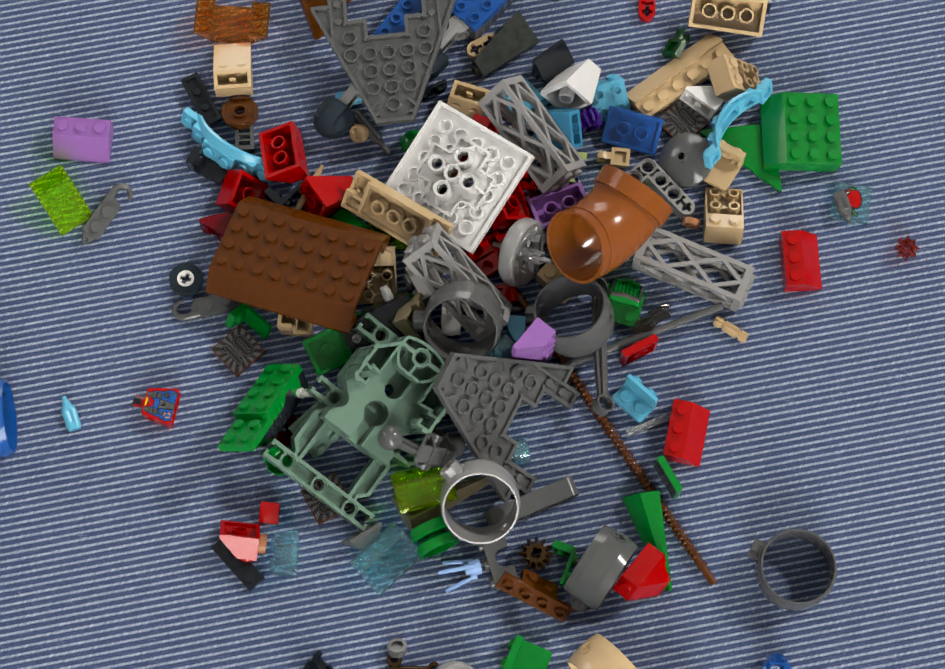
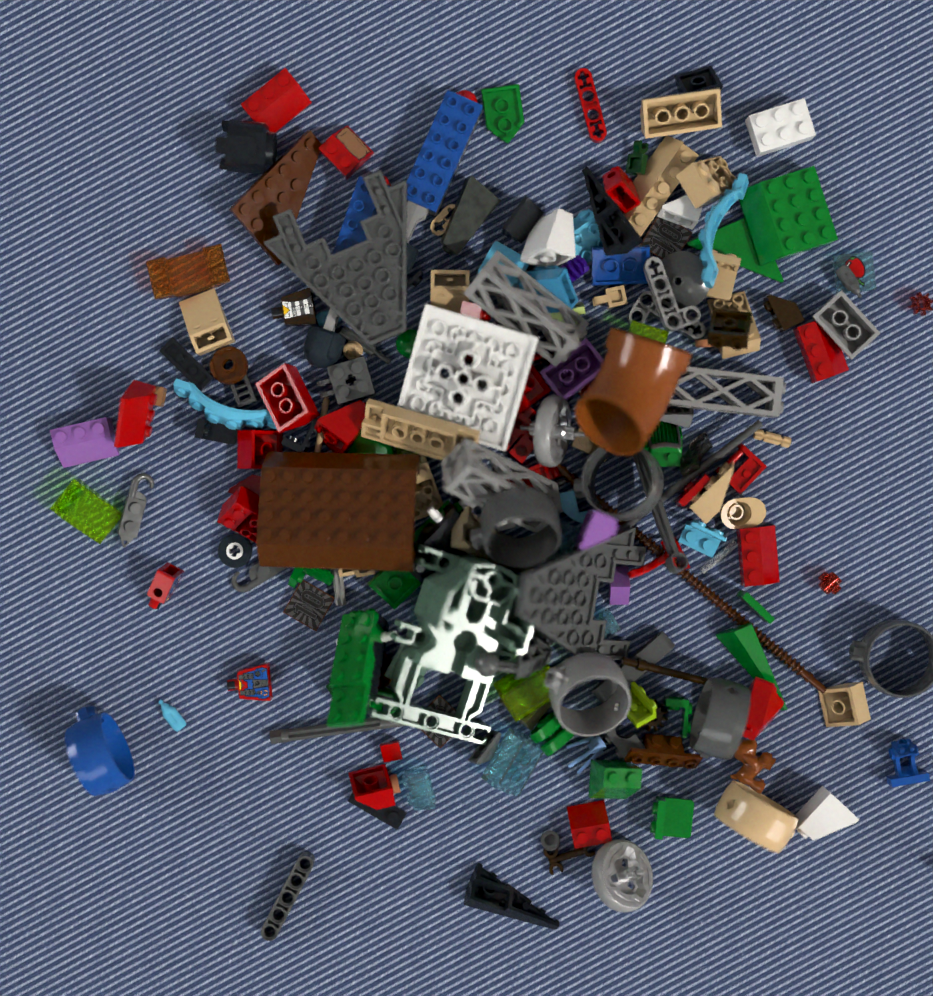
camera: 15 degrees left, 15 degrees up
(107, 288) = (164, 584): none -> red torso
(109, 625) = (283, 903): none -> dark grey beam
(138, 124) = (135, 414): none -> red slope
(164, 120) = (161, 392): none -> medium nougat slope
(203, 243) = (241, 513): none -> red slope
(227, 475) = (323, 730): none -> dark grey piece
(272, 341) = (339, 590): none -> light grey axle
(320, 81) = (297, 309): none -> torso
(339, 150) = (340, 373): none -> dark grey hinge
(440, 642) = (589, 824): none -> red slope
(478, 603) = (613, 779): none -> green slope
(525, 535) = (641, 707): none -> lime bracket
(540, 498) = (642, 665): none -> dark brown bar
(541, 423) = (620, 588): none -> medium lavender slope
(560, 411) = (636, 572): none -> red piece
(618, 618) = (752, 764): none -> dark orange animal
(635, 91) = (614, 228): none -> black wedge
(646, 281) = (679, 416): none -> dark grey slope
(650, 60) = (616, 183): none -> red torso
(657, 359) = (710, 498): none -> tan slope
(666, 163) = (666, 293): none -> light grey beam
(681, 385) = (743, 513): none -> tan piece
(696, 352) = (748, 470): none -> red plate
(716, 210) = (729, 329): none -> dark brown plate
(730, 602) = (844, 705): none -> tan slope
(747, 479) = (829, 583): none -> clear red gear
(774, 217) = (784, 312): none -> dark brown slope
(816, 55) = (780, 127): none -> white brick
(829, 243) = (846, 324): none -> light grey slope

